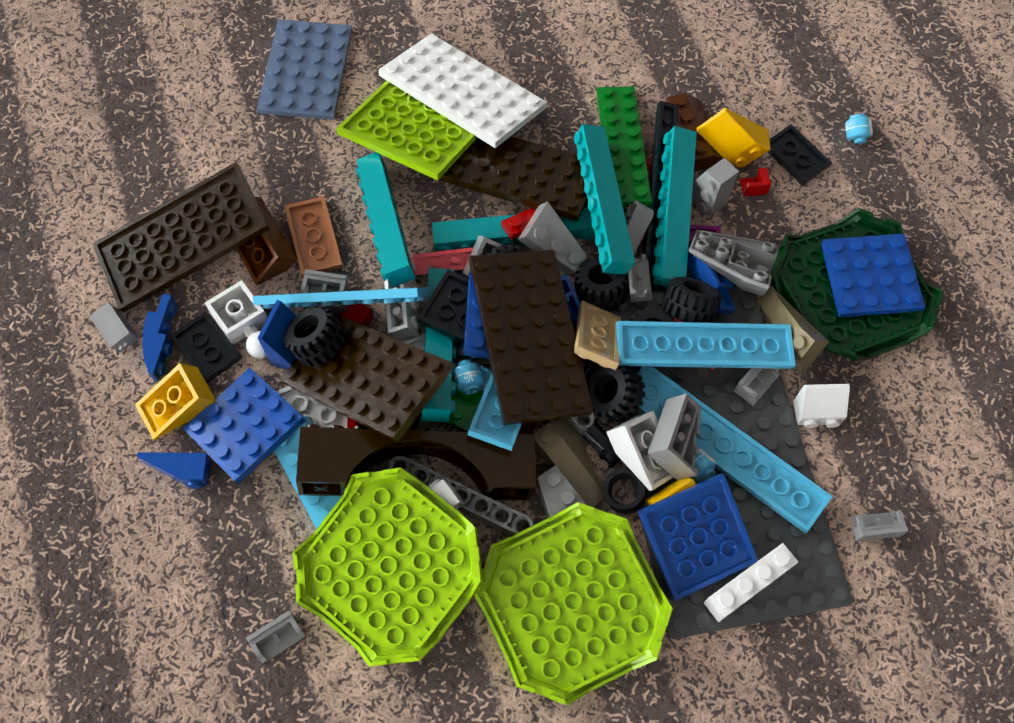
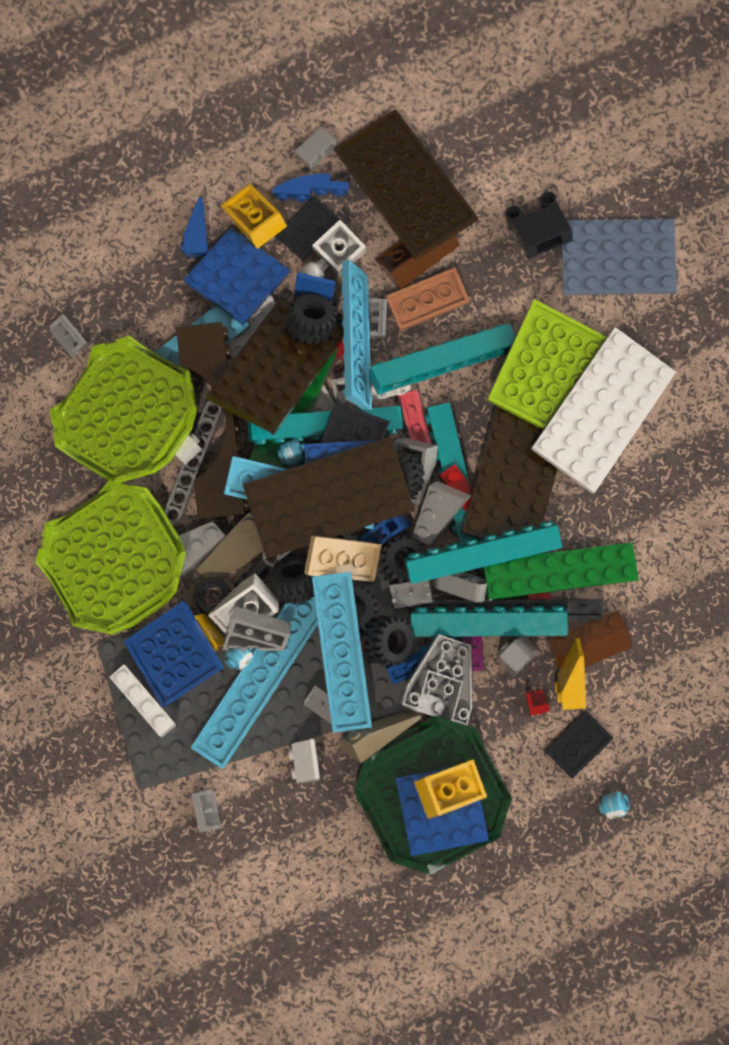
camera: 90 degrees right, 15 degrees up
(262, 118) = (541, 229): none -> black piece
(858, 257) = (450, 789): none -> yellow slope

